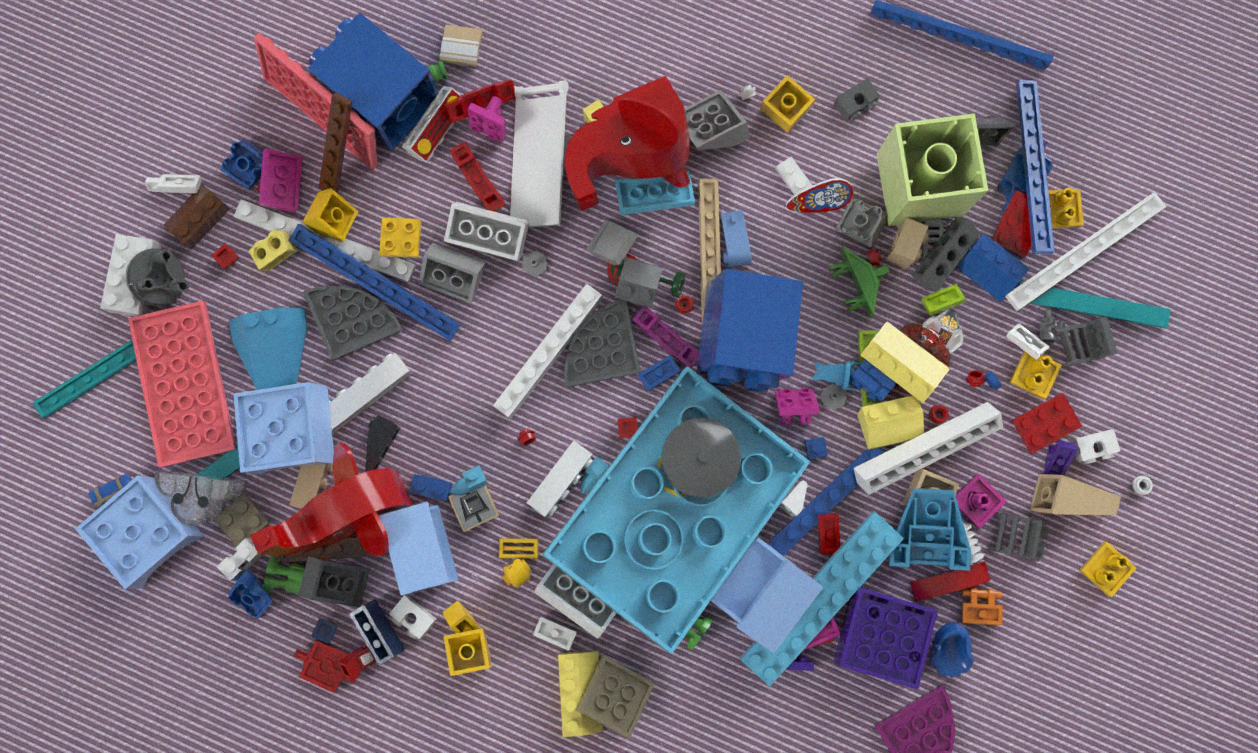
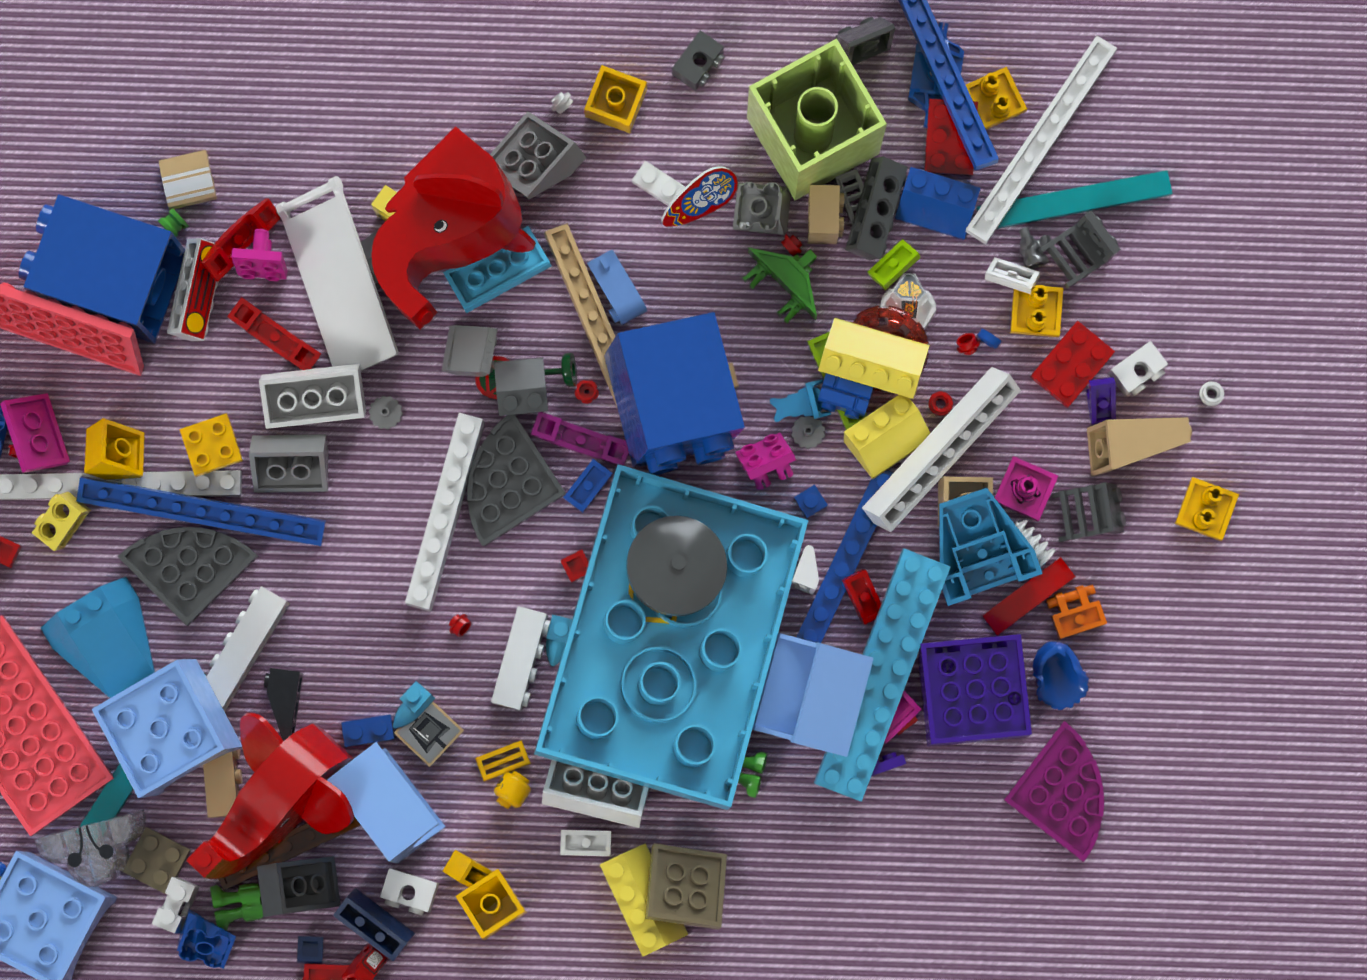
camera: 20 degrees left, 0 degrees up
(335, 142) = (89, 362): reddish brown plate -> none

